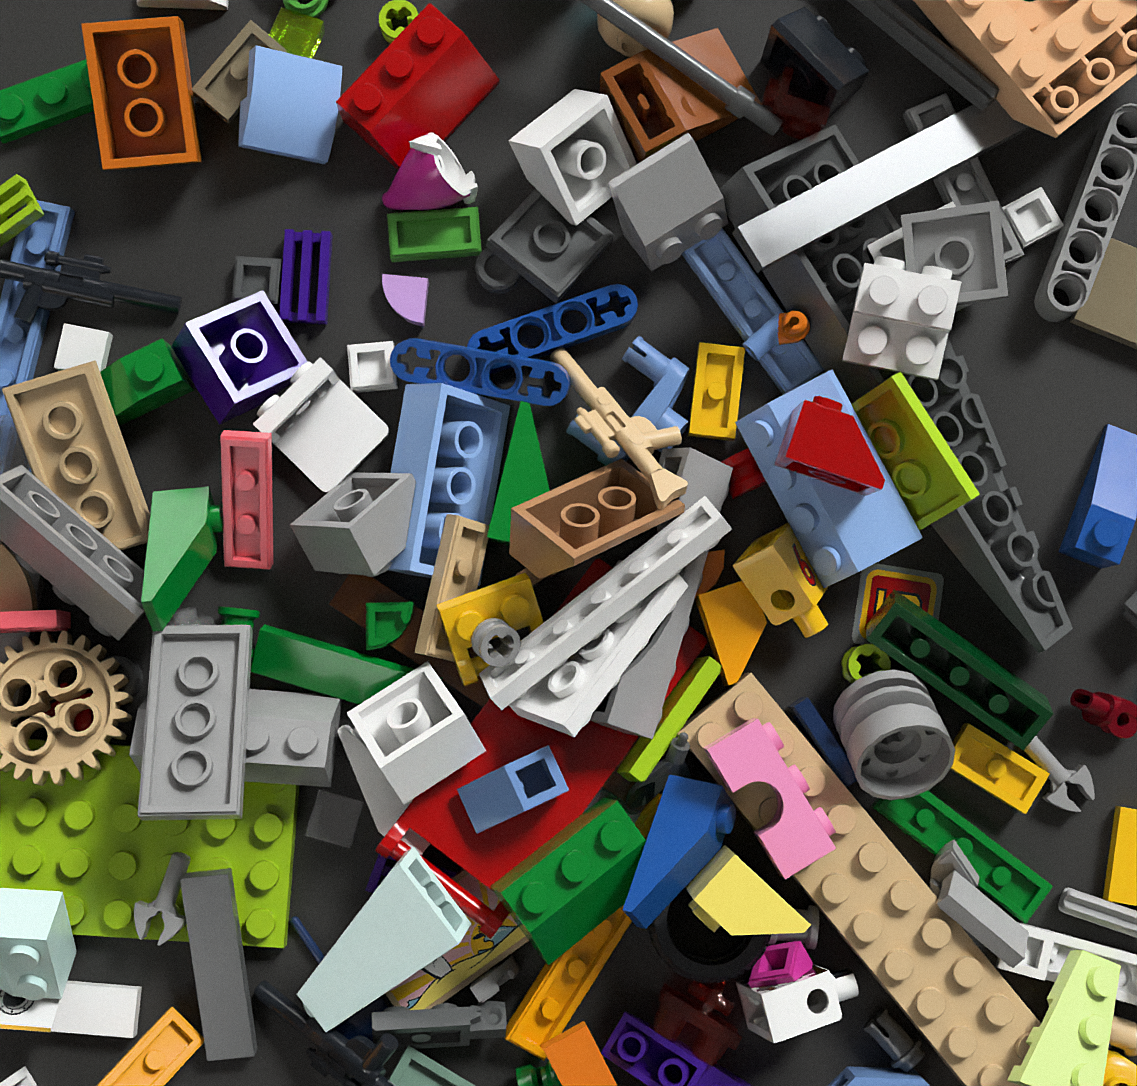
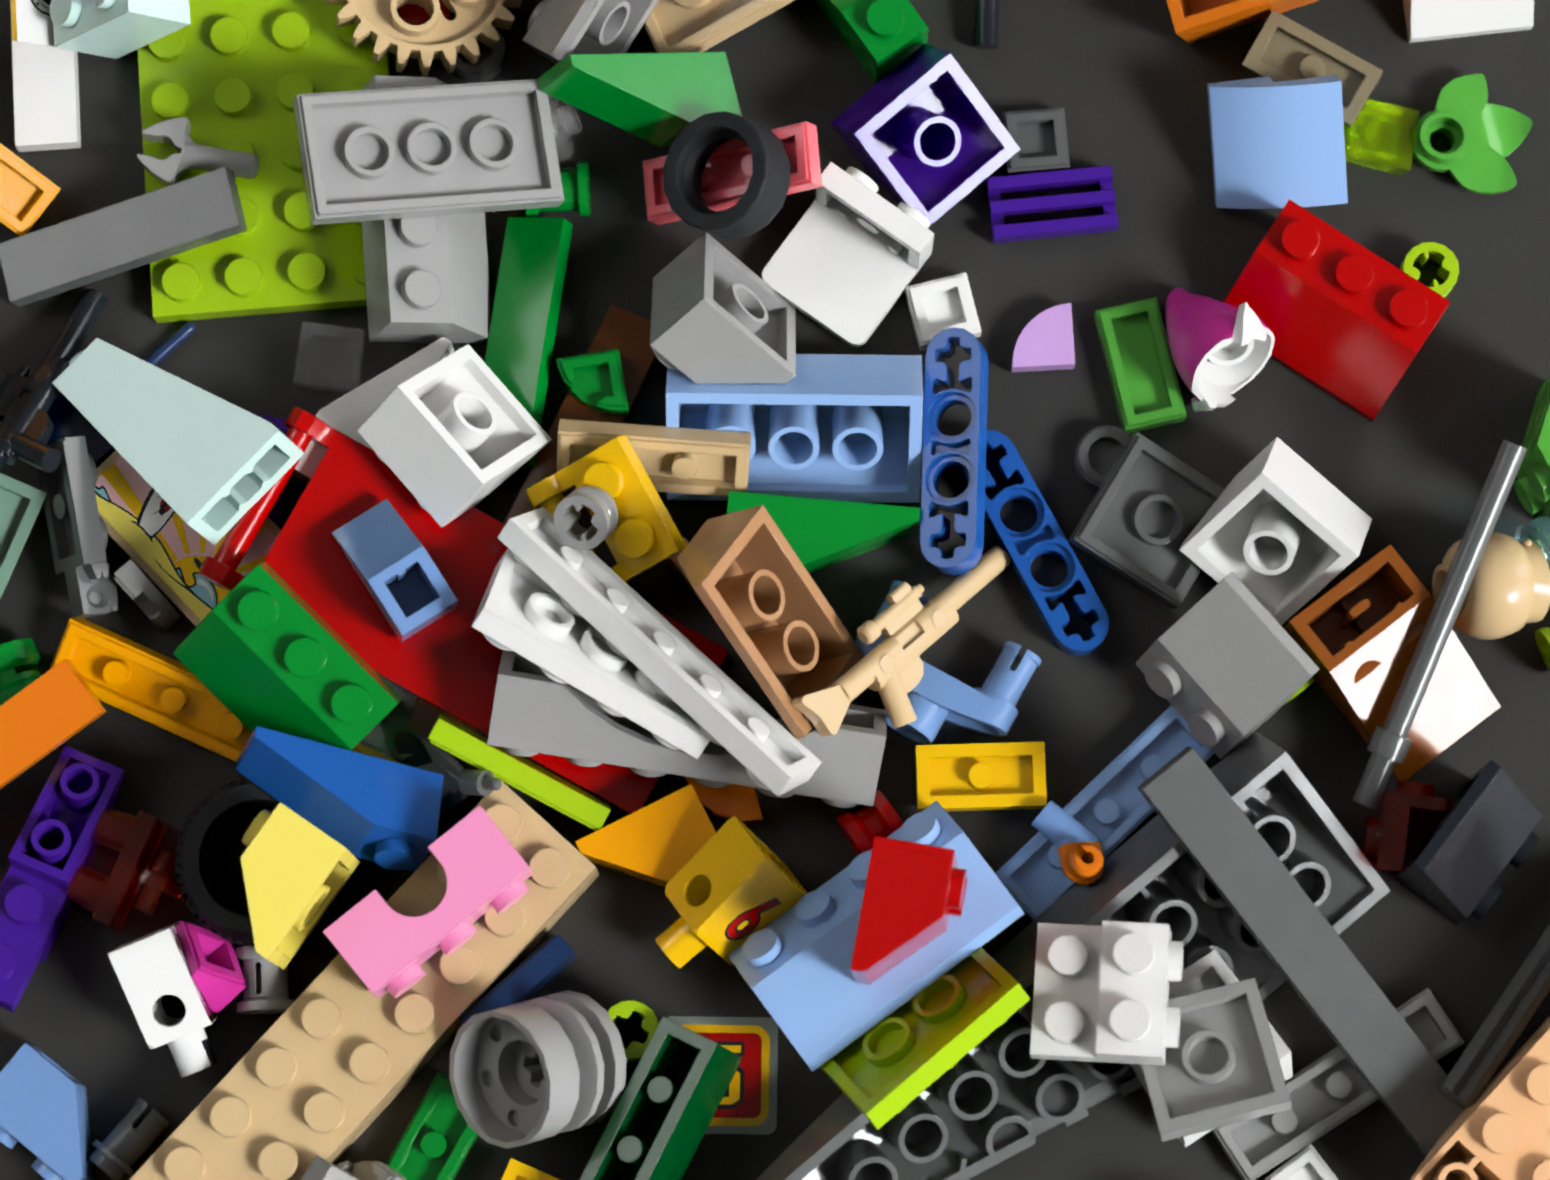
camera: 85 degrees right, 5 degrees down
(235, 530) = (687, 162): none -> black tyre

